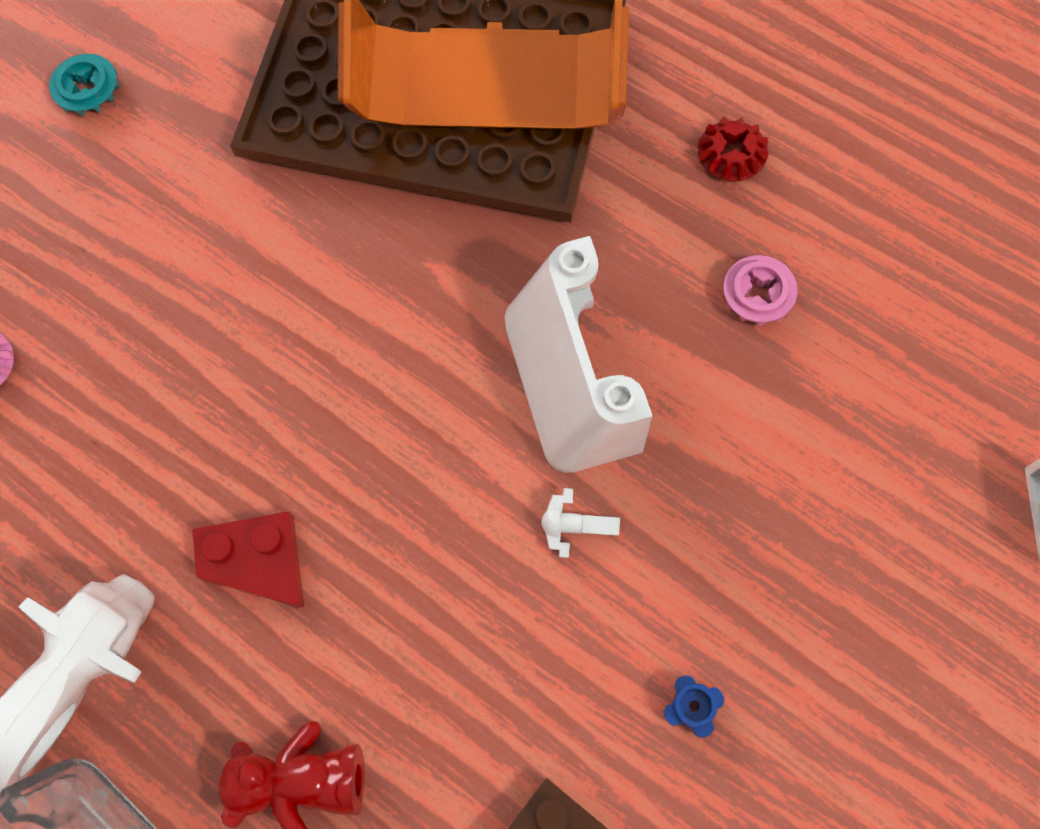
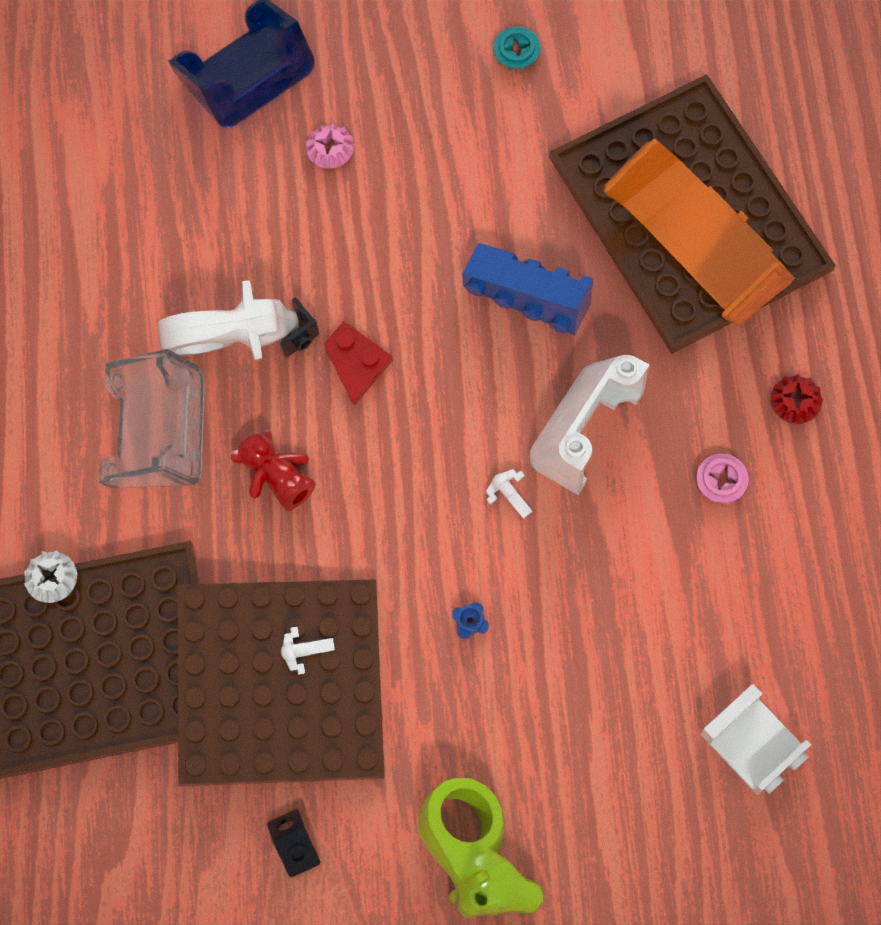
camera: 50 degrees right, 0 degrees up
(164, 592) = (302, 337): none -> black bracket
(359, 293) = (529, 288): none -> blue wedge

